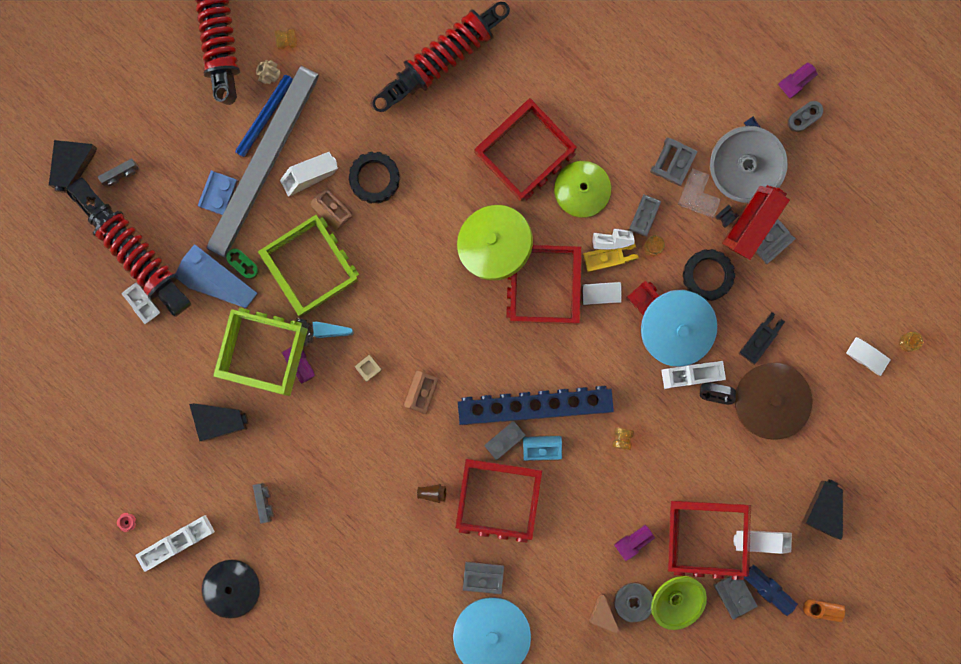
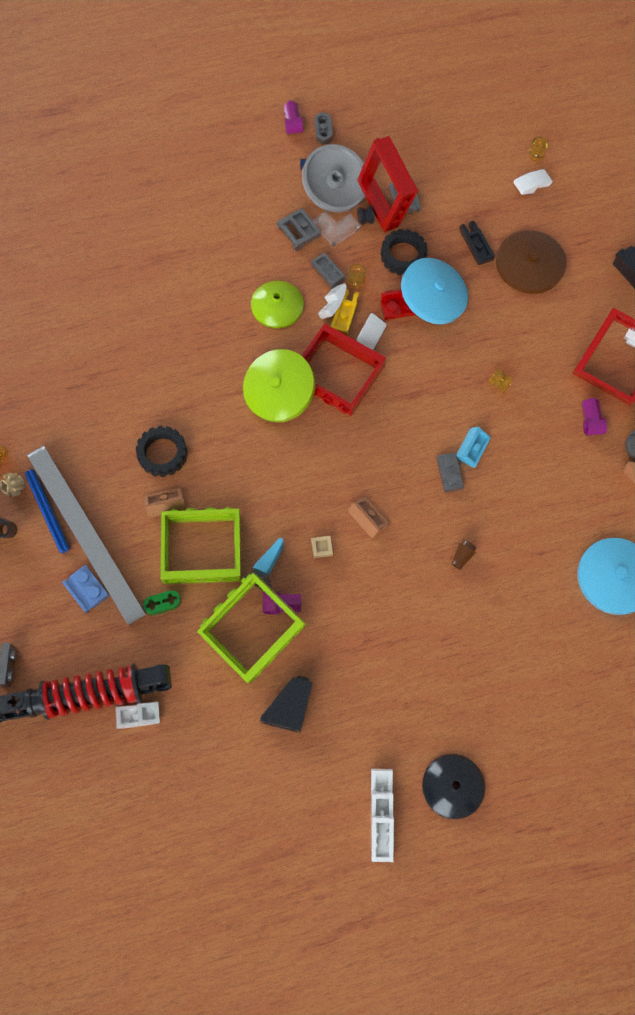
camera: 60 degrees left, 15 degrees down
(126, 527) = (339, 856): coral plate -> none
(209, 277) = (152, 638): medium blue wedge -> none
(264, 510) = (396, 708): flat silver plate -> none
(308, 173) = (121, 501): white slope -> none
(441, 54) = (98, 342): piece -> none
(483, 577) = (561, 553): flat silver plate -> none
(501, 533) = (519, 478): red window -> none
(509, 123) = (216, 296): red window -> none
(604, 405) = (411, 488): dark blue brick -> none
(693, 374) = (477, 304): white slope -> none
(717, 393) = (503, 293): black beam -> none

